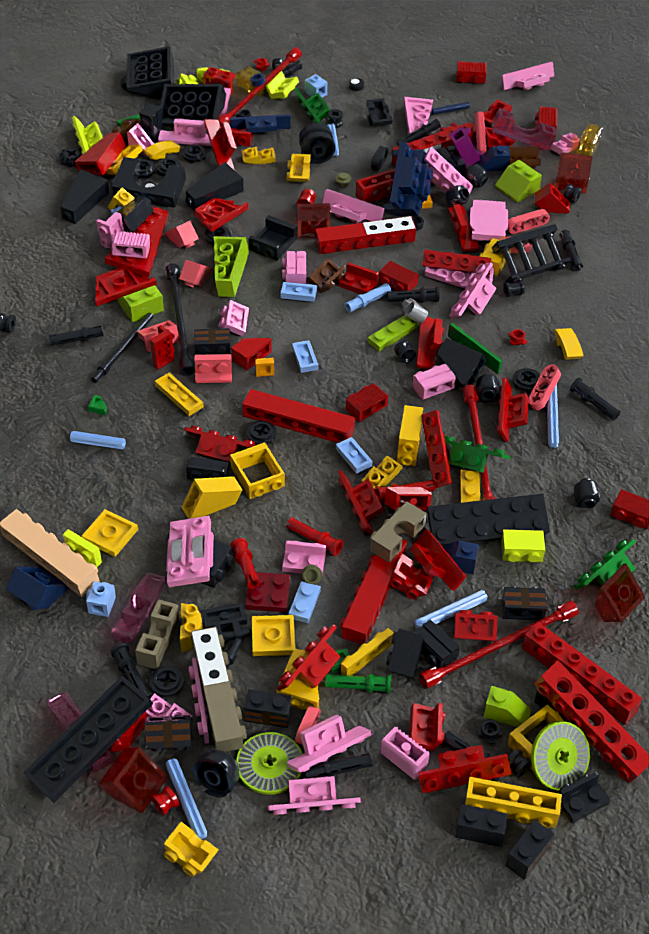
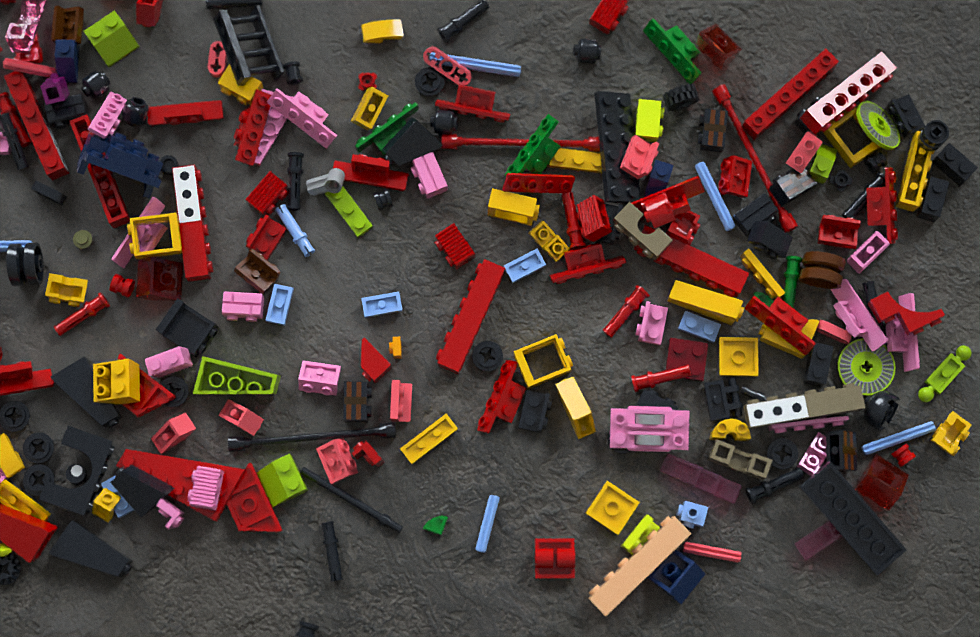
camera: 85 degrees left, 30 degrees up
(60, 488) = (554, 558): none -> red plate
(60, 620) = (713, 552): none -> coral axle
(221, 194) = (116, 382): none -> yellow slope
(240, 224) = (168, 362): none -> bright pink brick
(253, 156) = (27, 337): yellow slope -> none
(266, 846) = (944, 373): none -> lime plate
(269, 173) = (89, 309): none -> red pin
(311, 574) = (673, 317): olive plate -> none
(329, 598) = (706, 302): none -> yellow slope
(334, 765) = (886, 309): none -> red arch
(350, 216) = (154, 219): none -> yellow window
(376, 702) = (822, 270): none -> reddish brown wheel
(421, 539) = (658, 210): none -> red cylinder
(472, 674) = (791, 186): none -> black brick
(480, 533) = (639, 157): none -> coral bracket
(488, 220) = (180, 82): bright pink piece -> none
(490, 333) = (369, 108): none -> yellow brick
(514, 676) = (804, 152): none -> coral bracket
(537, 217) = (182, 40): coral beam -> none
(553, 568) = (681, 97): none -> black tyre
(555, 800) = (933, 135): none -> black wheel

